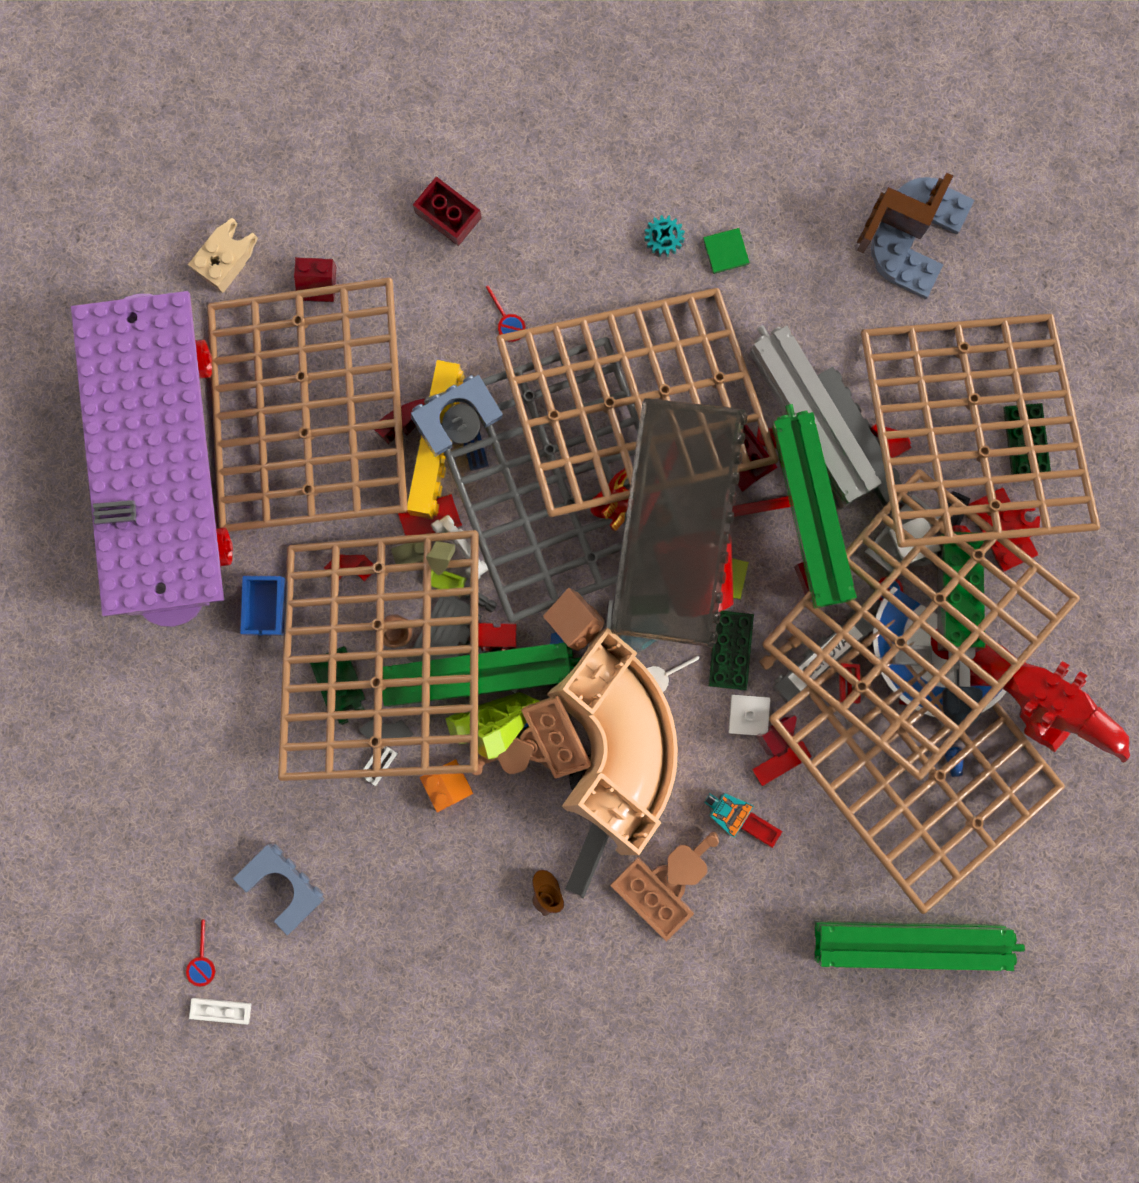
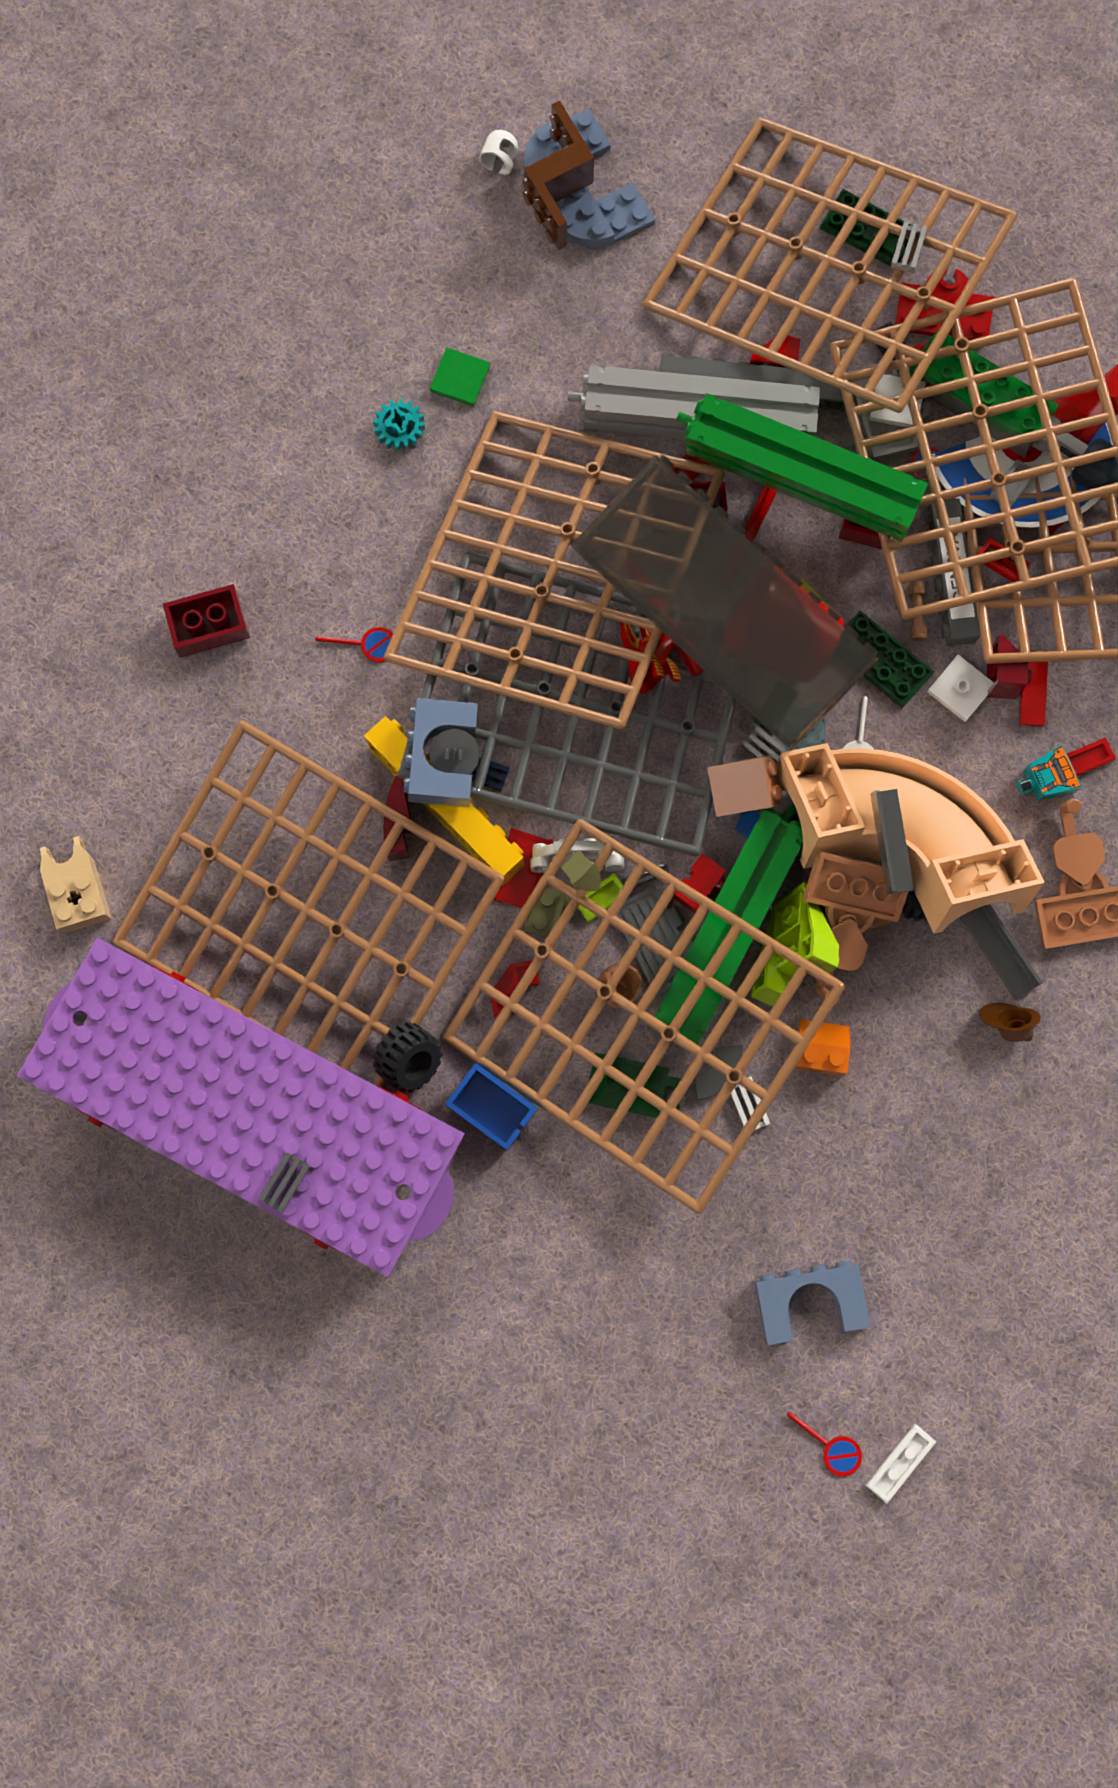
camera: 55 degrees left, 5 degrees down
(256, 532) = (407, 1057): none -> black tyre
(315, 273) = (169, 804): dark red slope -> none
(598, 738) = (891, 841): none -> dark grey panel
(901, 157) = (500, 144): none -> white helmet
(1037, 469) = (913, 230): none -> light grey tile

